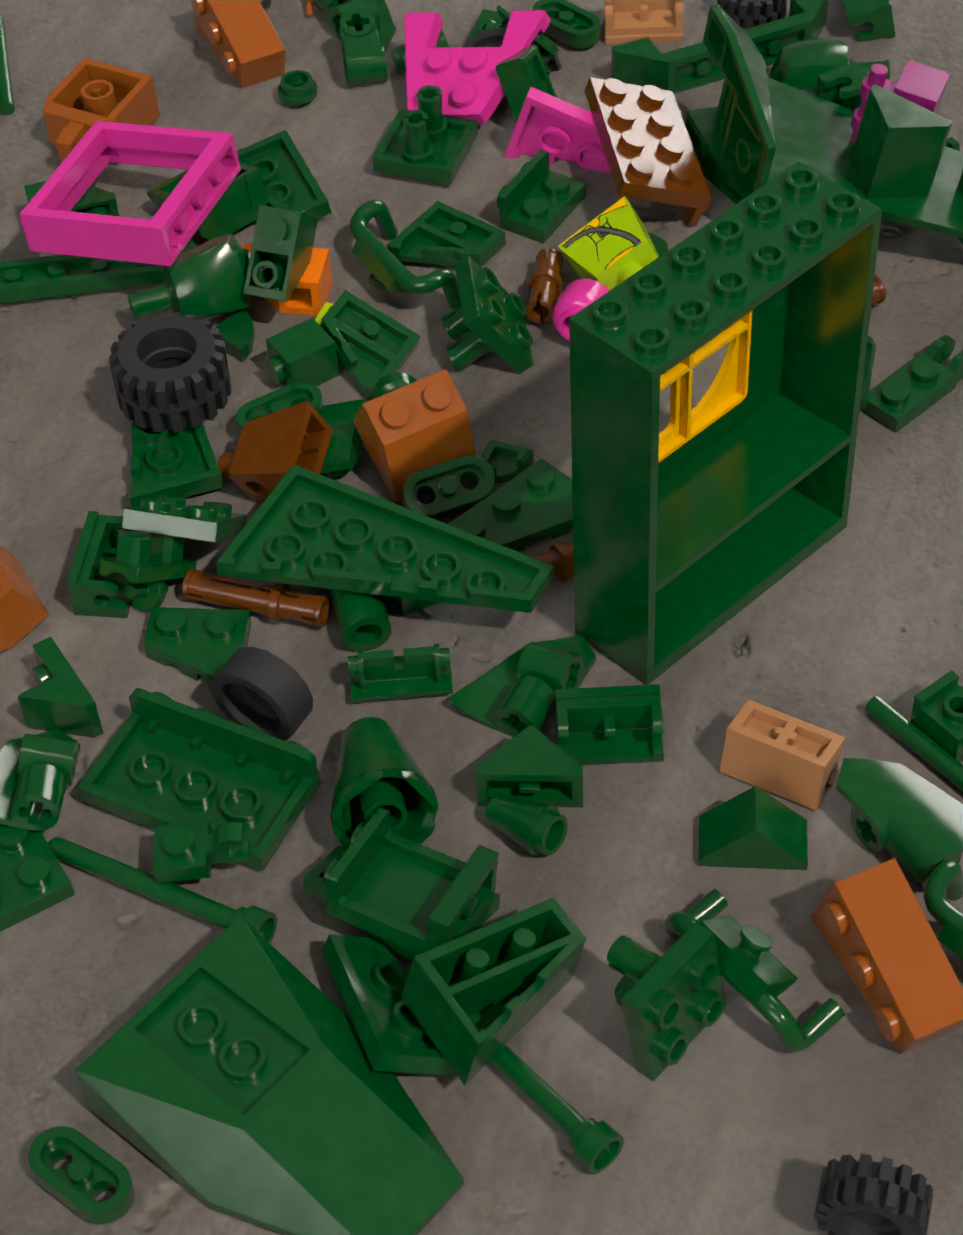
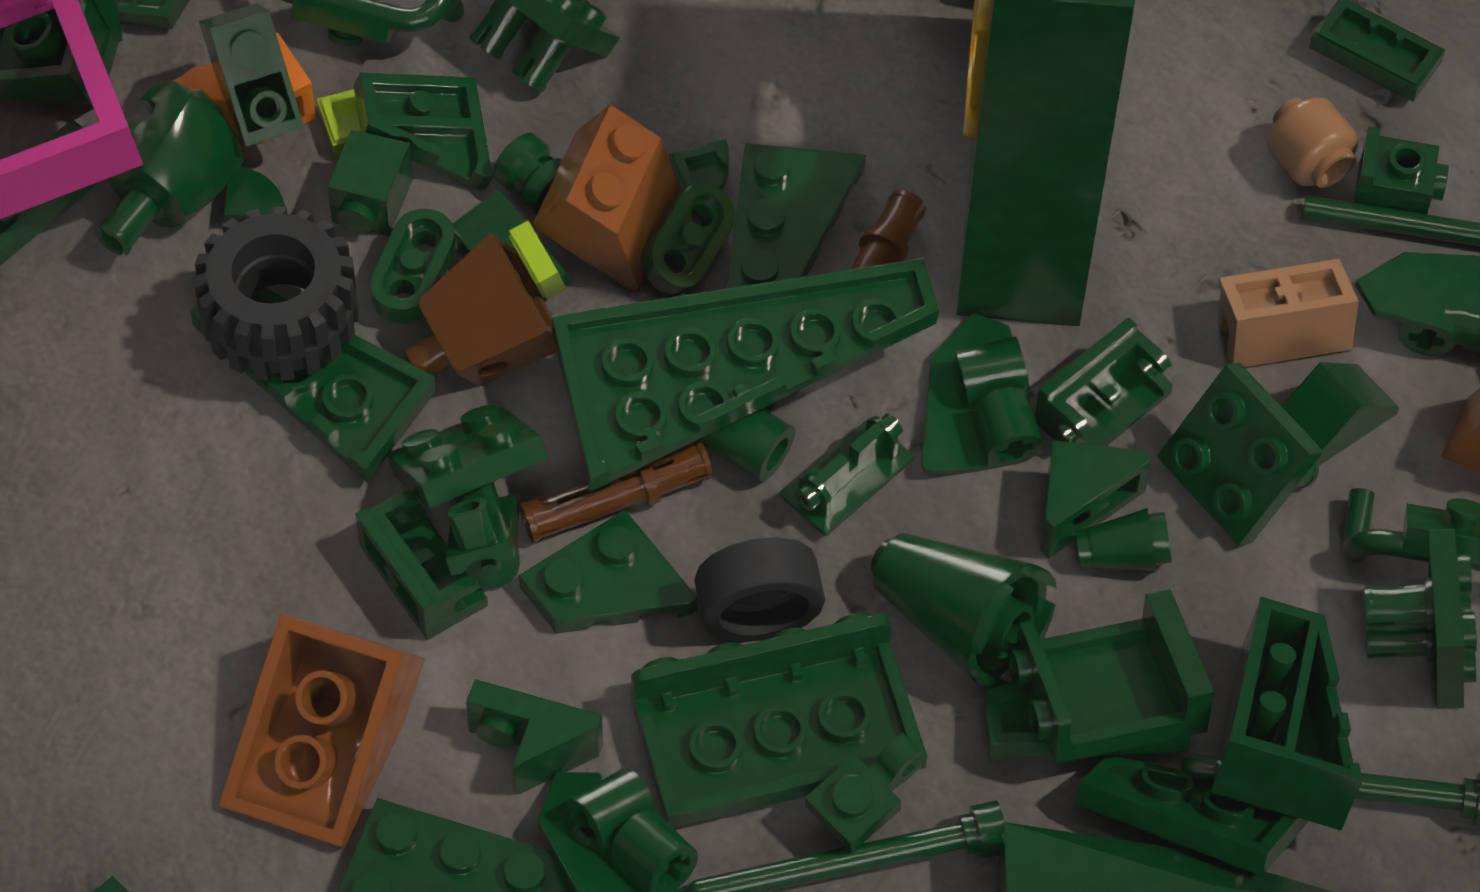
camera: 45 degrees left, 10 degrees up
(330, 437) = (536, 260): none -> lime tile
(651, 813) = (1240, 454): none -> dark green plate
(910, 661) = (1313, 142): none -> medium nougat head

